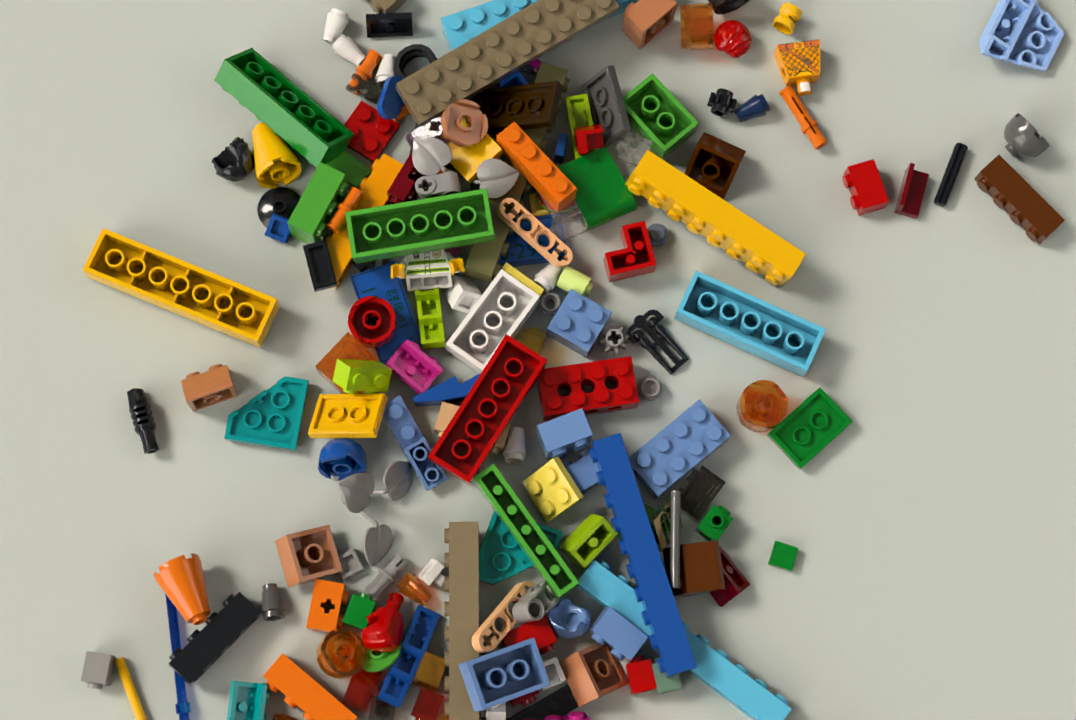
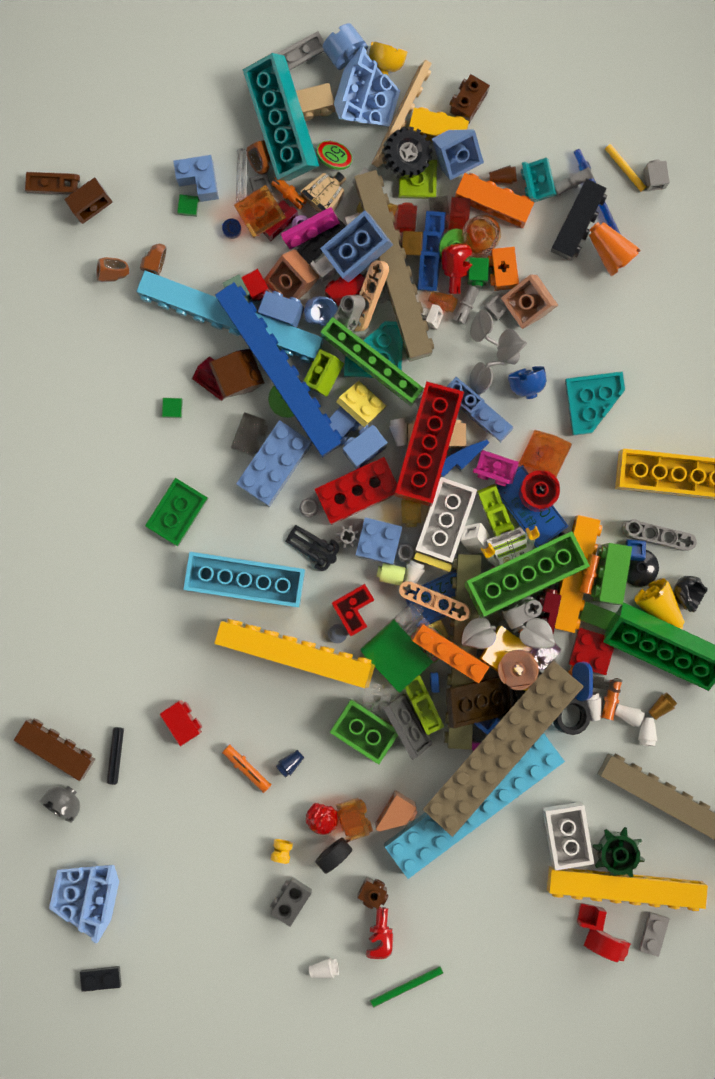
camera: 170 degrees right, 10 degrees up
(143, 421) = (688, 368): black hinge -> none
(203, 692) = (573, 181): none -> light grey pin
(209, 387) = (647, 406): nougat slope -> none
(246, 237) = (659, 533): none -> light grey beam
(271, 604) = (545, 260): dark grey cone -> none
(307, 49) = (662, 706): none -> pearl gold cone
(320, 265) = (594, 524): black tile -> none
(348, 415) = (534, 413): yellow tile -> none
(362, 376) = (533, 446): lime brick -> none
(389, 25) = (604, 746): black plate -> none
(588, 138) = (416, 694): red panel -> none
(661, 524) = (267, 402): clear green piece -> none
(675, 540) = (256, 387): dark grey bar -> none
(714, 164) = (308, 705): reddish brown slope -> none
(714, 523) = (230, 415): green brick -> none
(722, 102) = (315, 760): black gear -> none
(773, 400) = (209, 510): clear orange brick -> none
(799, 64) = (261, 813): torso -> none
(911, 192) = (143, 730): dark red panel -> none

